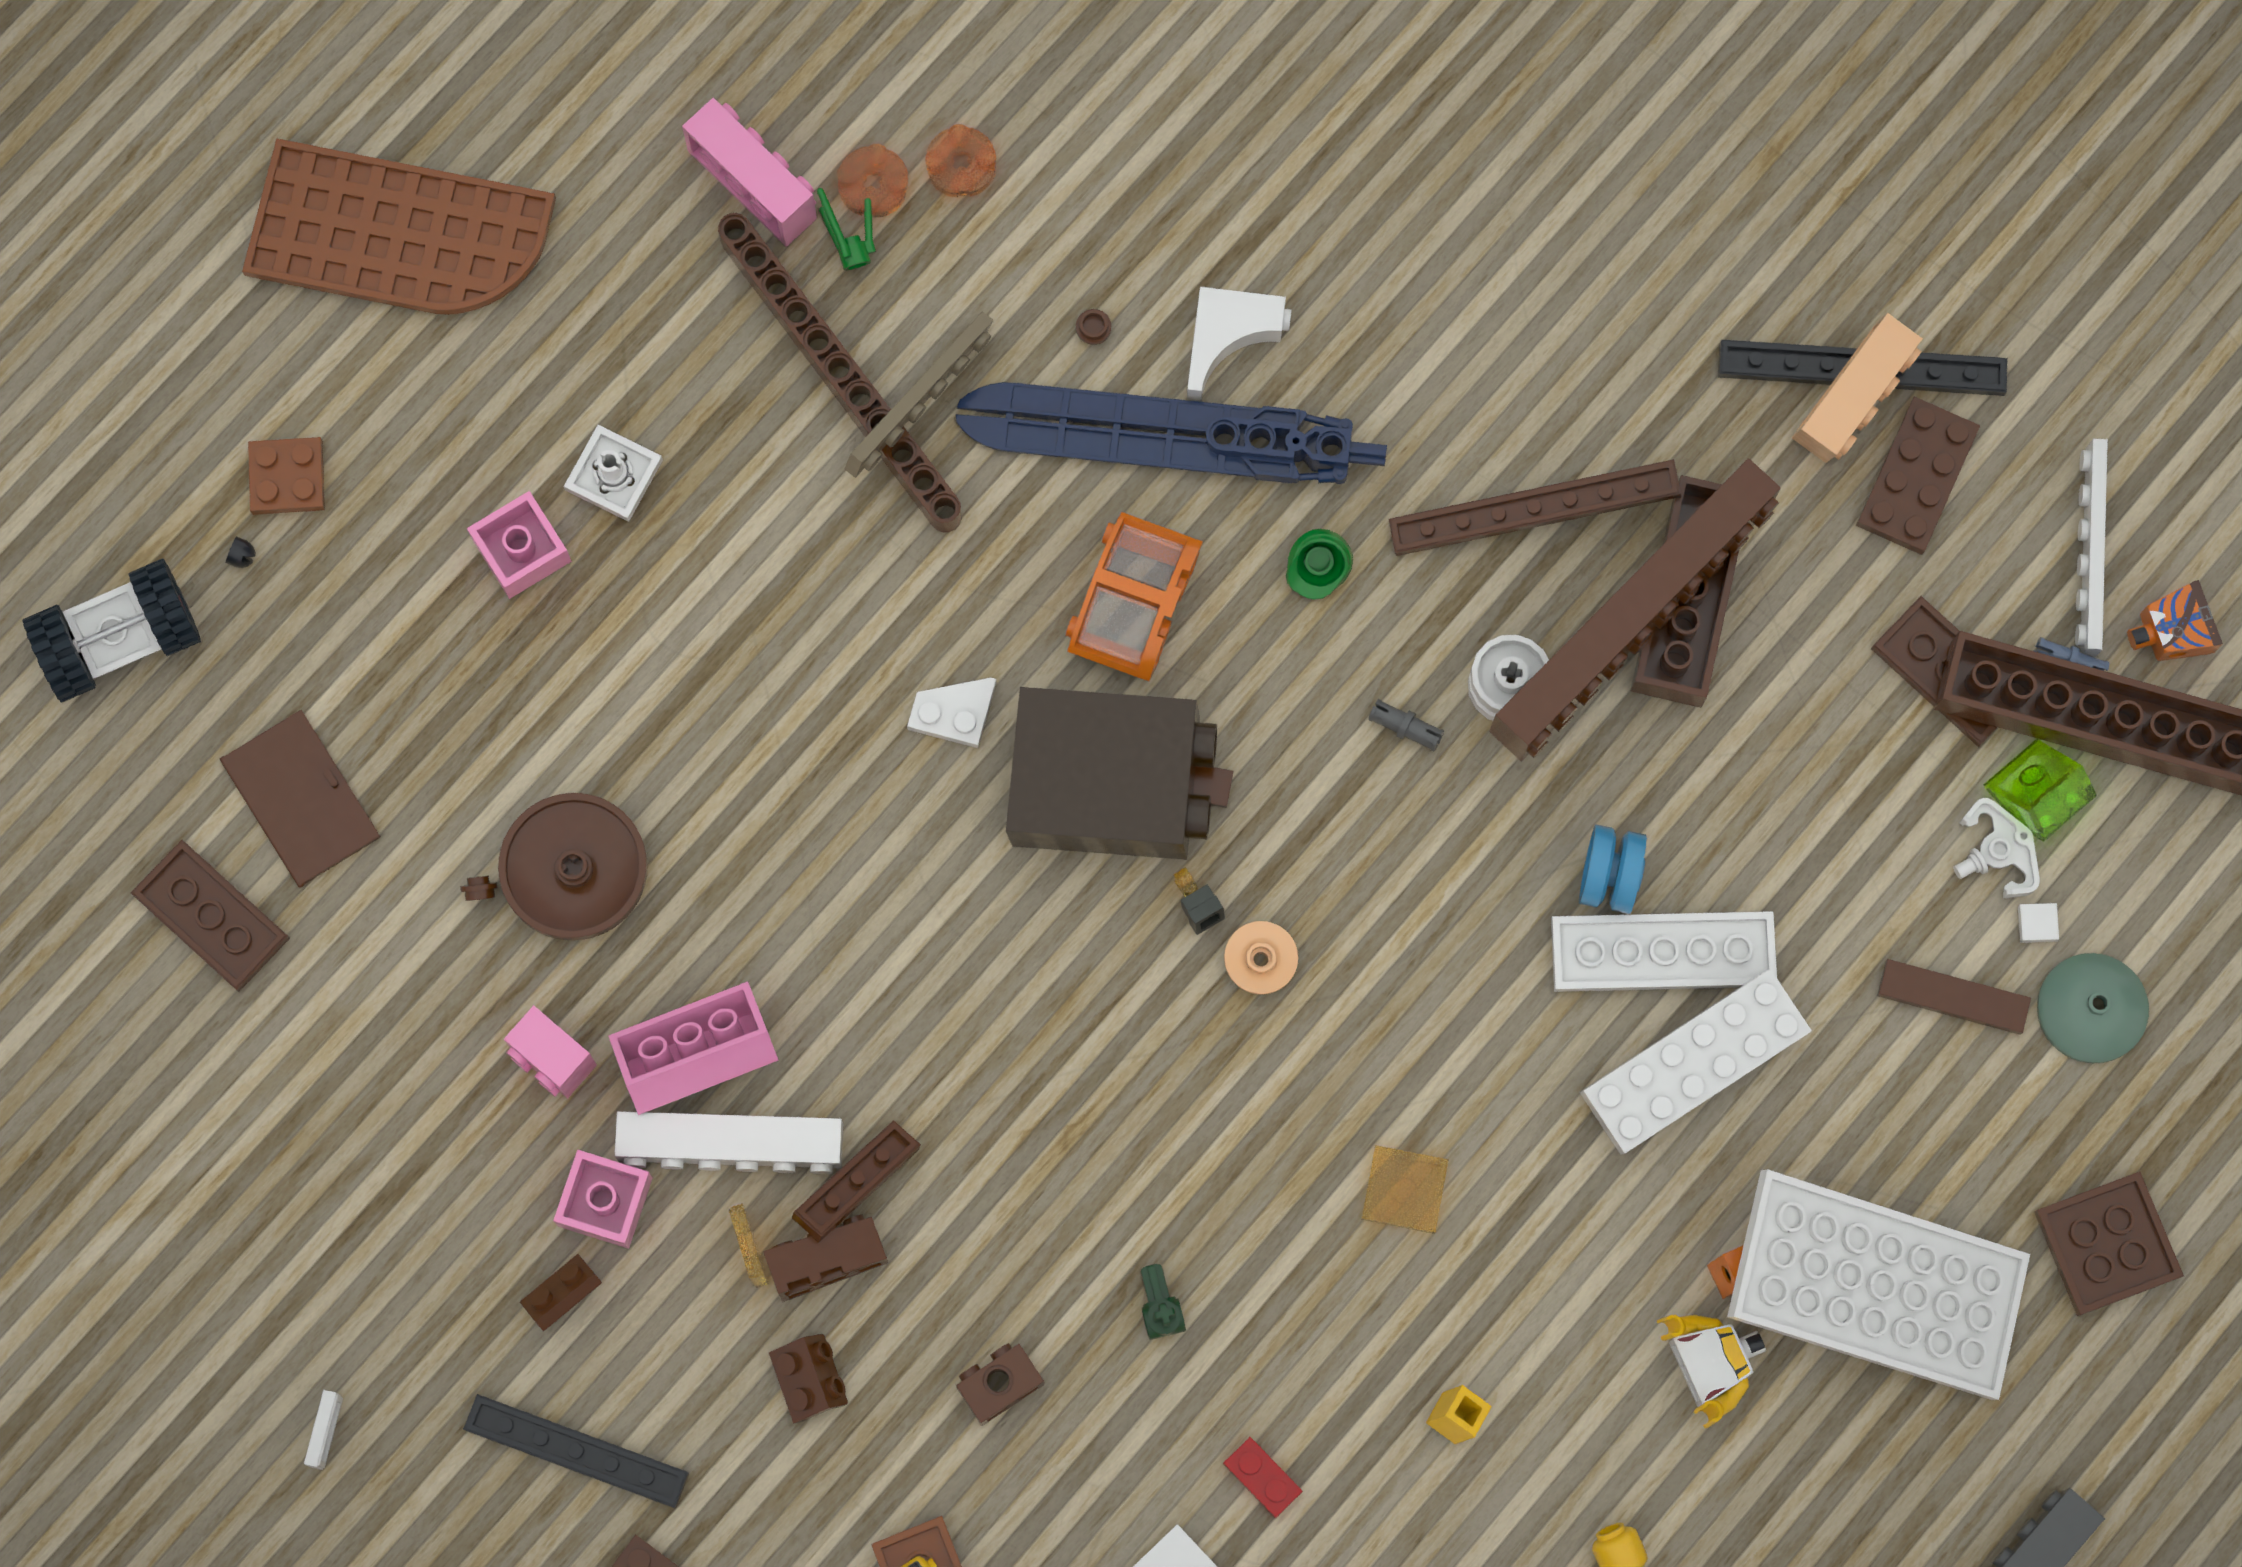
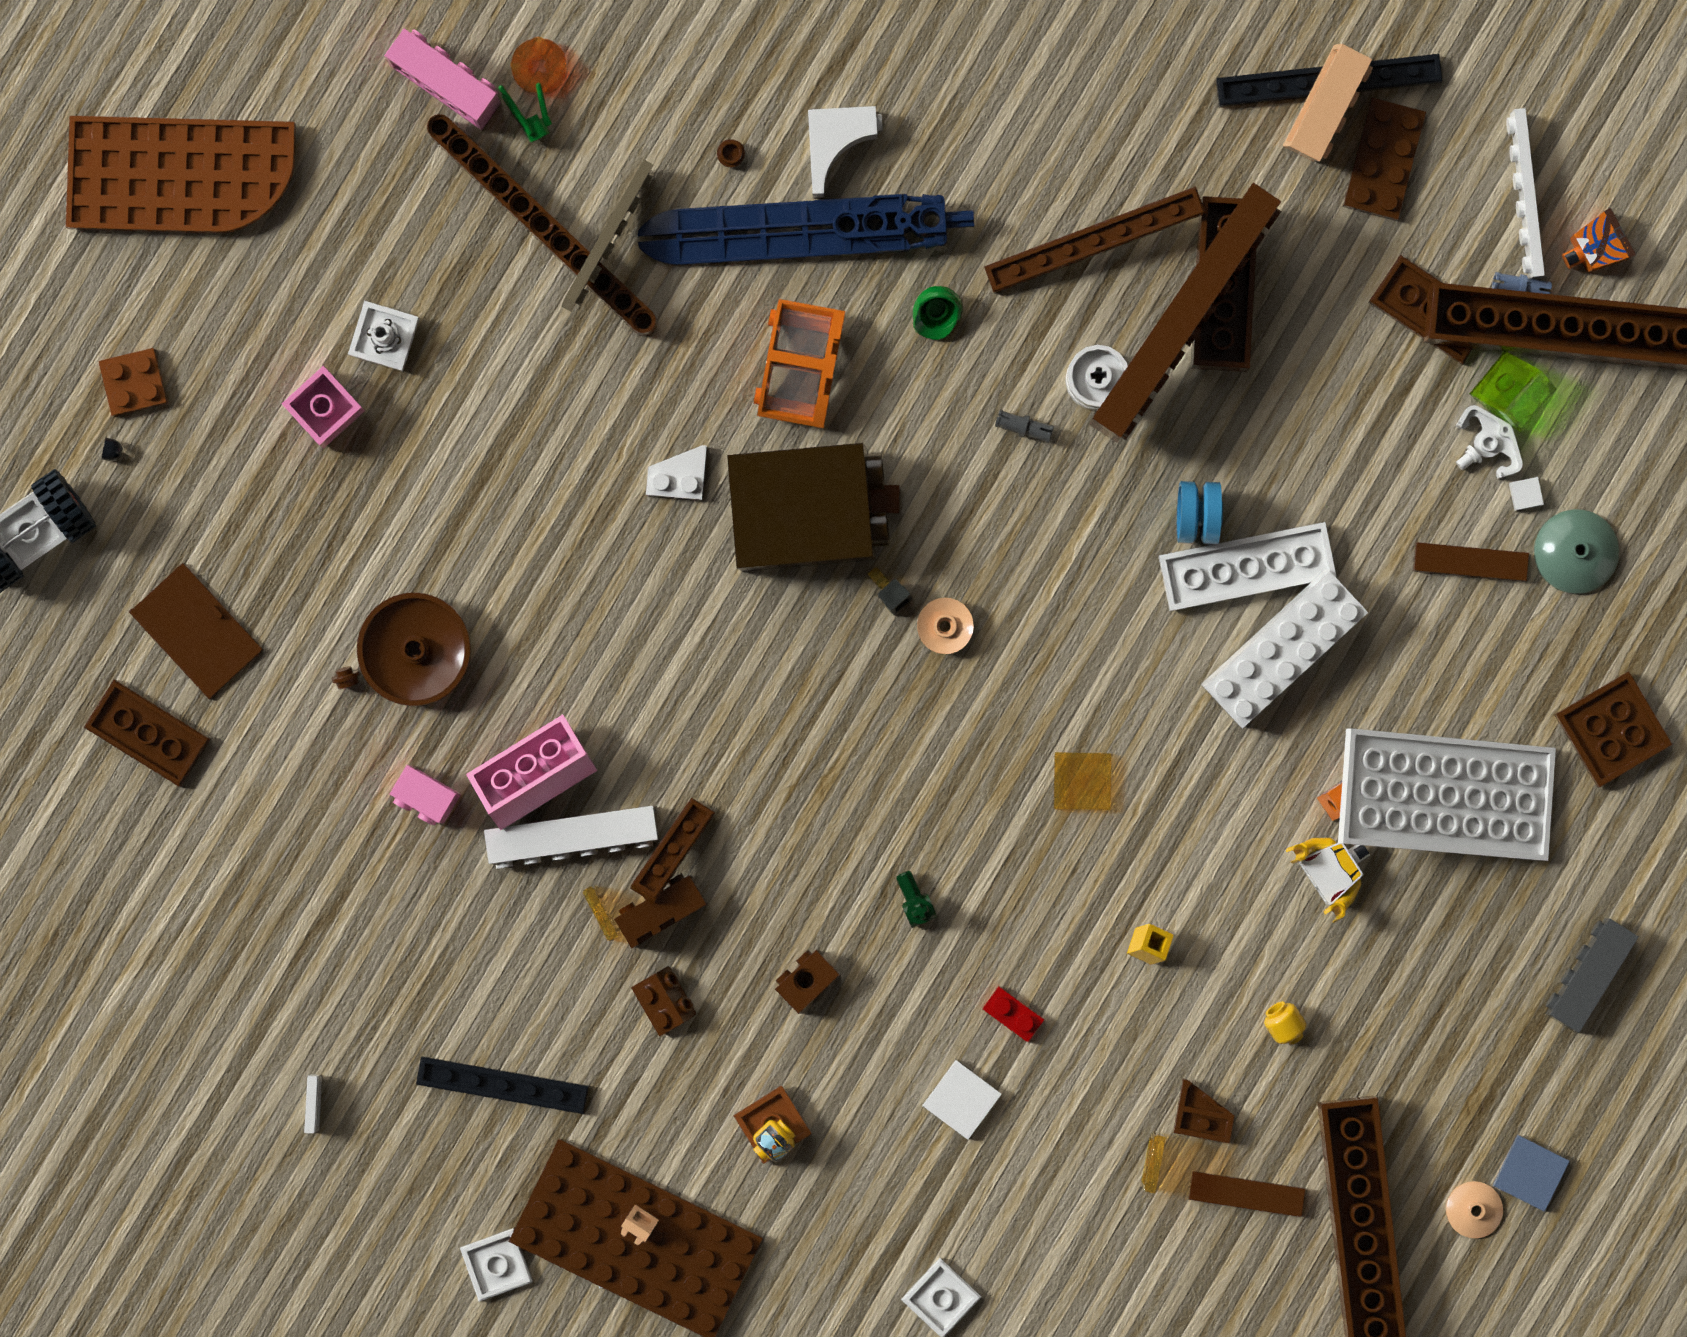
camera: 10 degrees left, 10 degrees up
(560, 1292) = (468, 972): reddish brown bracket -> none
(603, 1199) = (486, 897): bright pink brick -> none
(962, 181) = (600, 22): clear orange plate -> none

